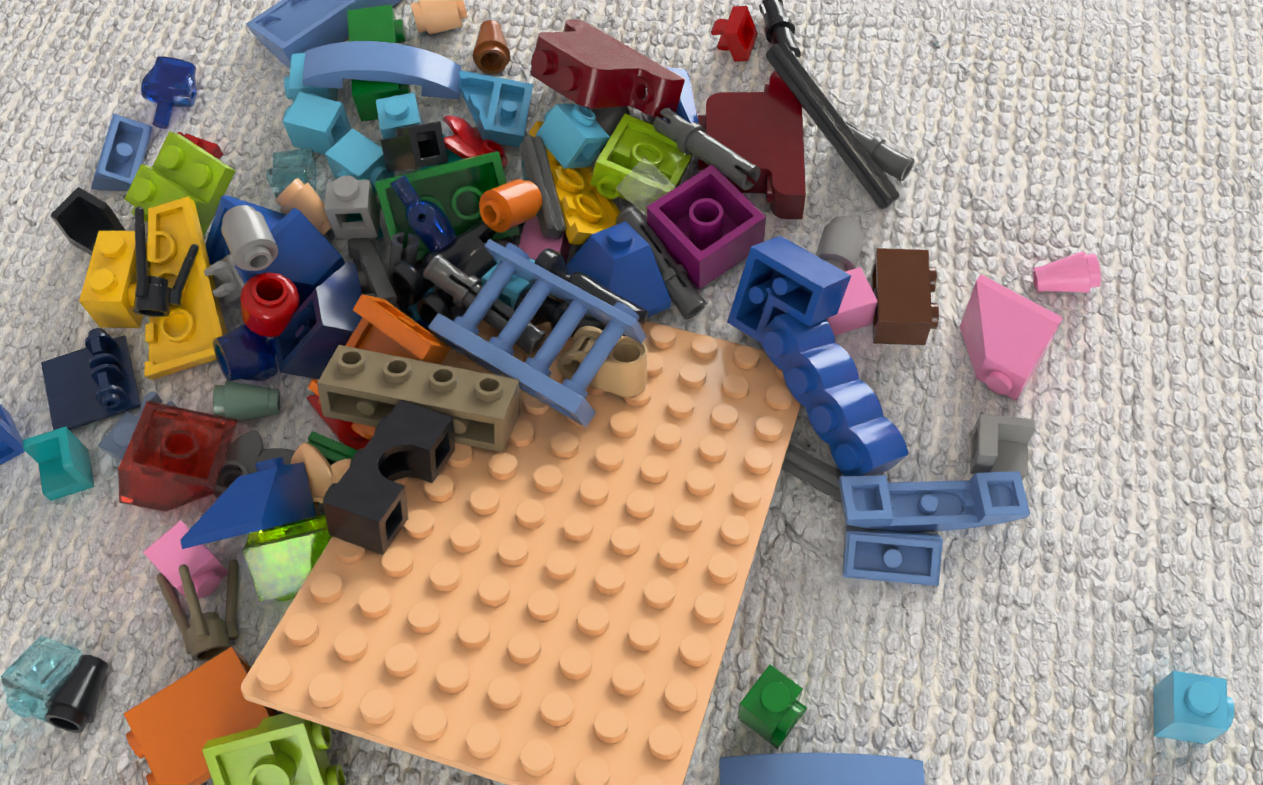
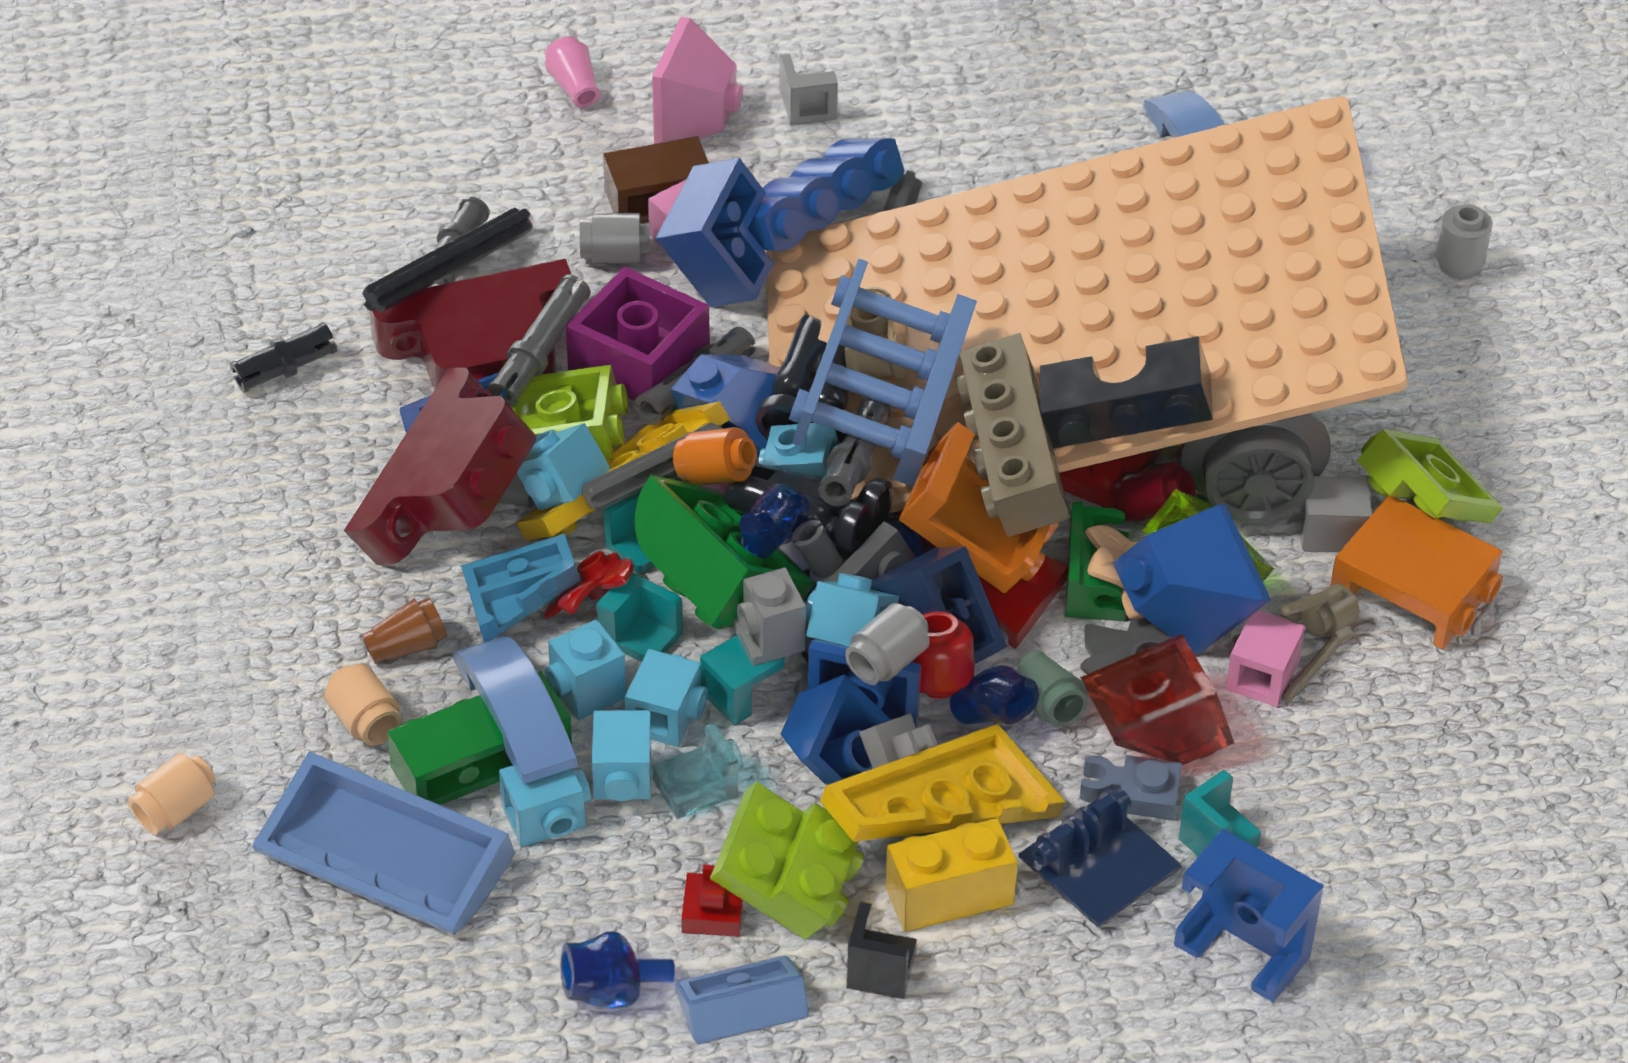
camera: 115 degrees left, 15 degrees down
(37, 676) = (1452, 729): clear light blue bracket -> none
(77, 696) = (1449, 694): black cone -> none
(152, 292) = (970, 780): black plant -> none
(307, 201) = (757, 721): light nougat cone -> none
(320, 250) = (843, 608): none -> medium azure brick
(415, 147) = (646, 605): black brick -> none
(644, 185) = (618, 377): clear plate -> none
(736, 33) = (307, 389): red tile -> none
(892, 555) = (953, 150): medium blue slope -> none
(933, 505) = (872, 105): medium blue slope -> none

